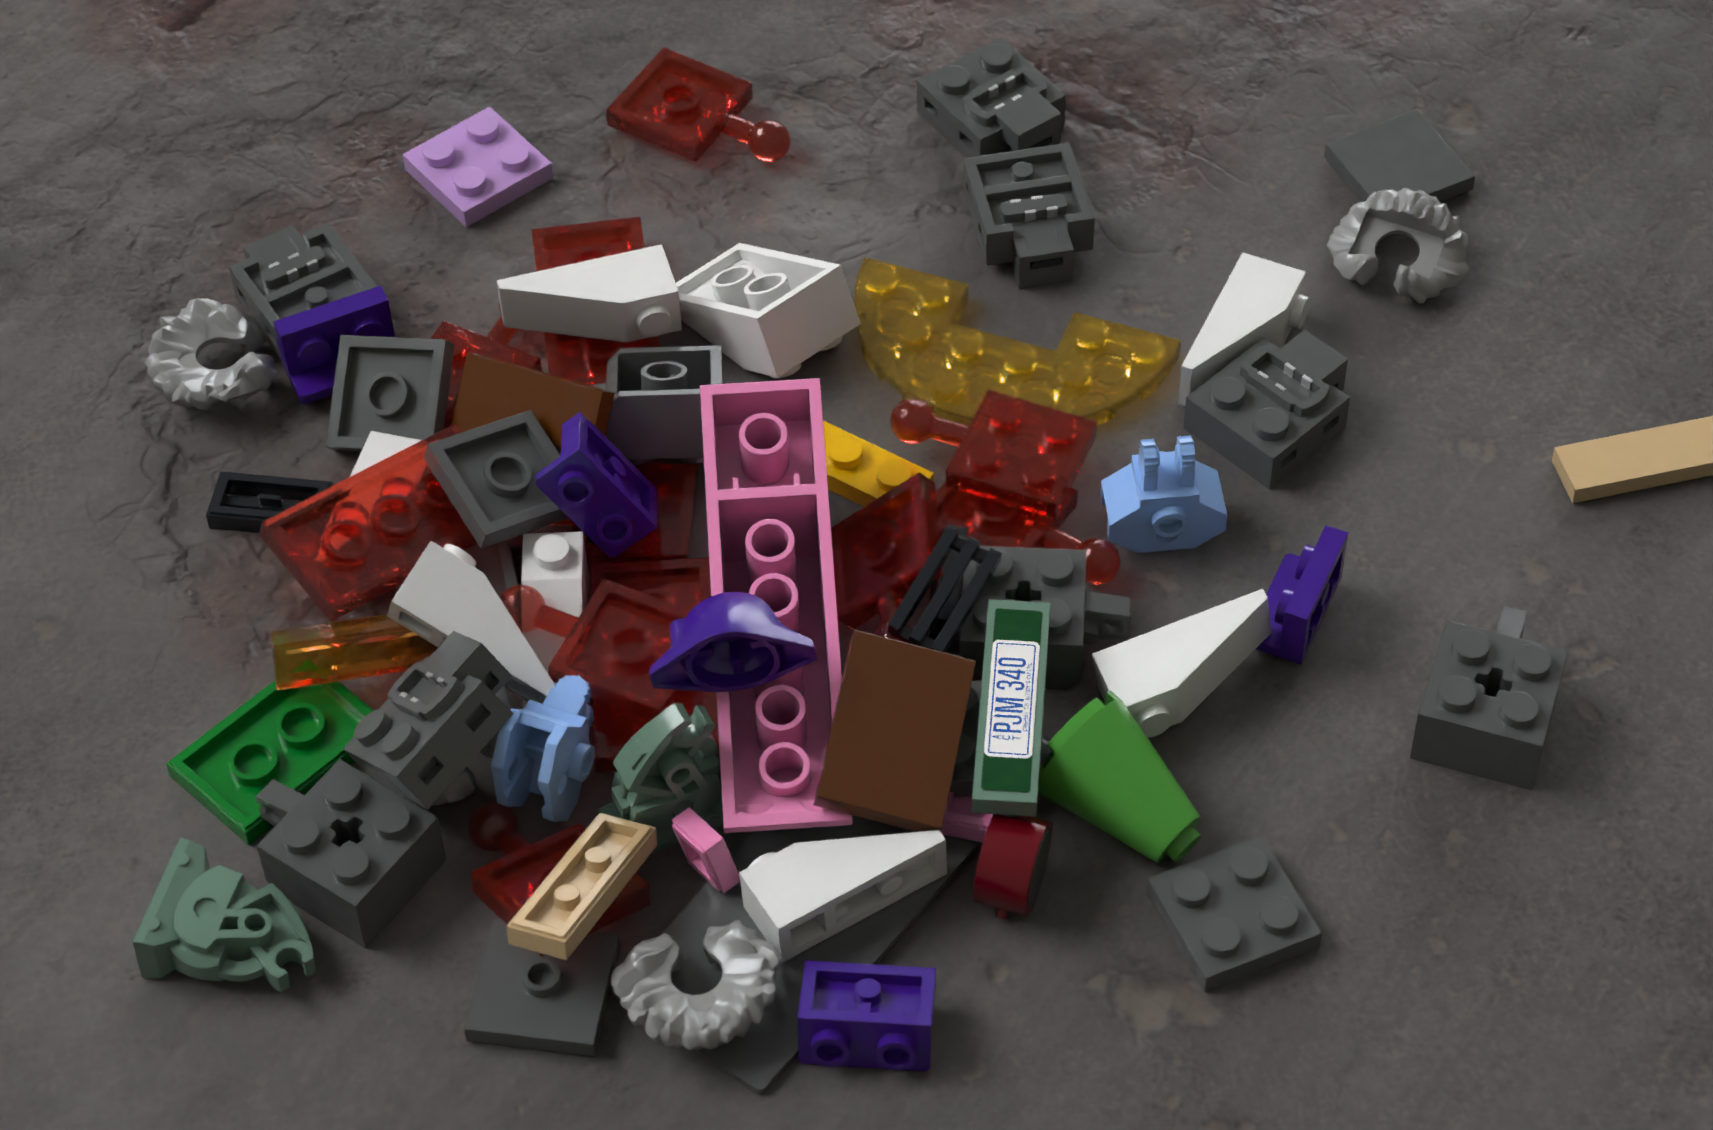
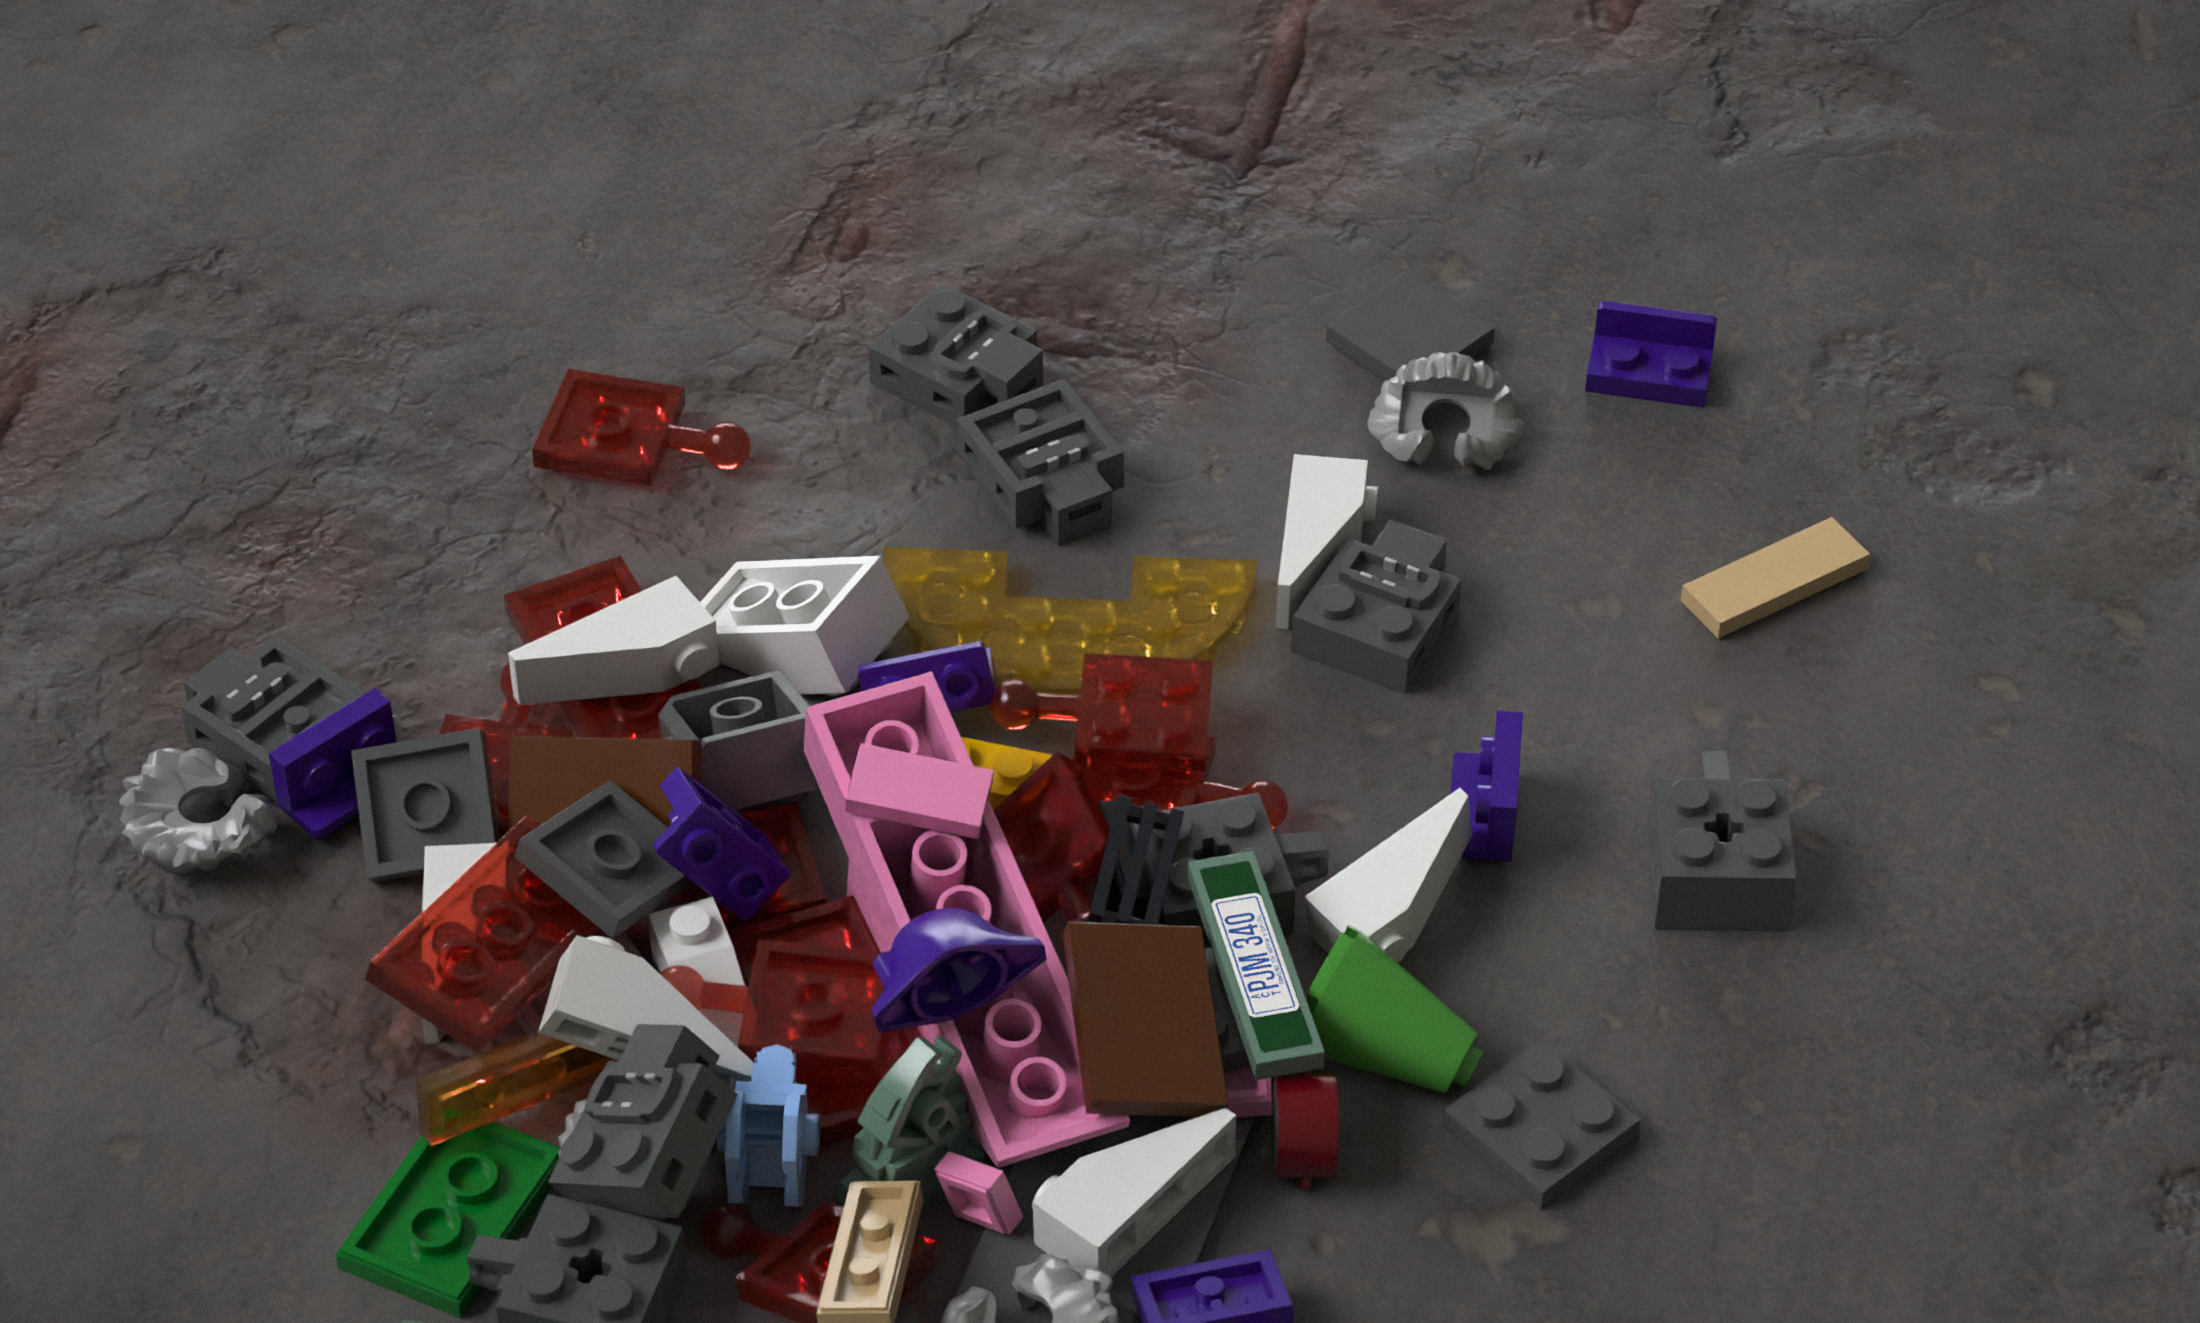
camera: 20 degrees left, 5 degrees down
(248, 513) = (329, 964): black tile -> none
(477, 166) = (405, 542): lavender plate -> none
(767, 481) = (919, 790): none -> bright pink tile
(854, 384) = (961, 671): none -> dark purple bracket
(1163, 500) = (1311, 721): light blue hinge -> none
(1609, 230) = (1651, 353): none -> dark purple bracket

